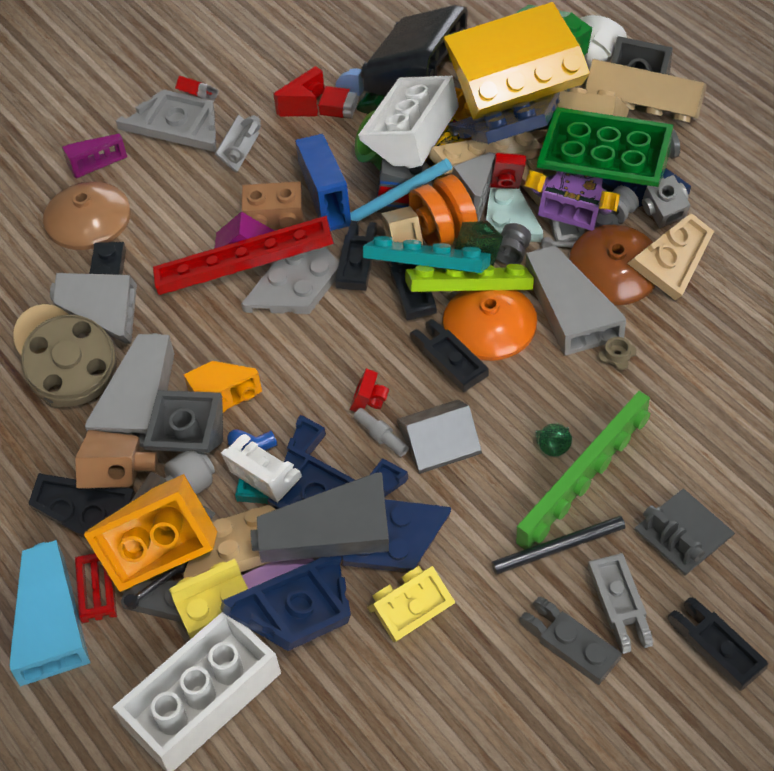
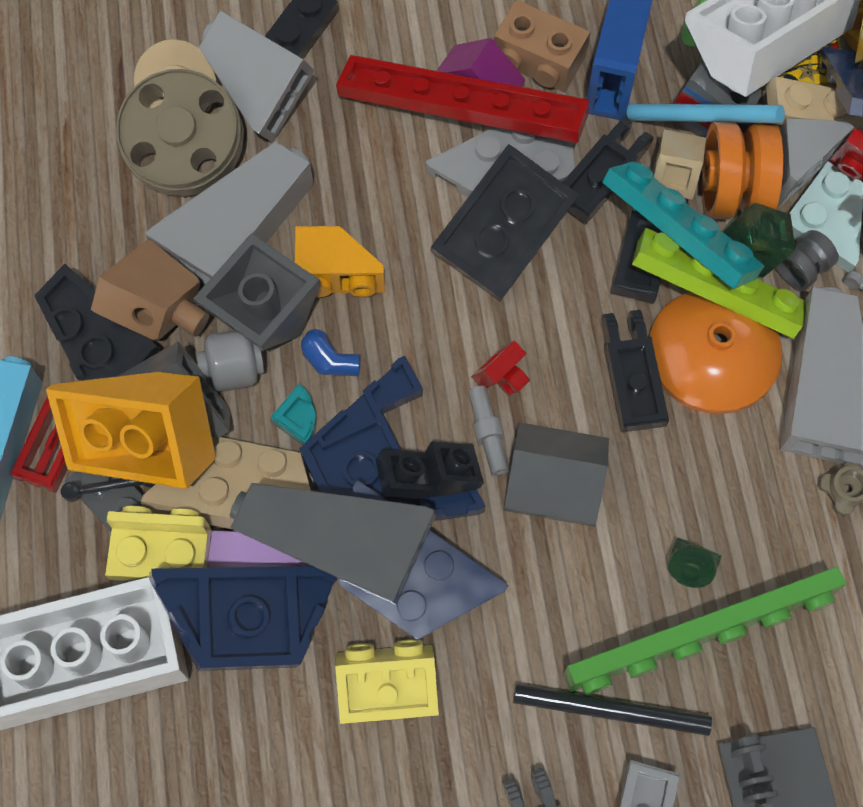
camera: 25 degrees right, 15 degrees up
(260, 468) = (314, 403): white hinge -> none
(315, 311) = (504, 222): none -> black plate
(364, 461) = (434, 473): none -> black slope

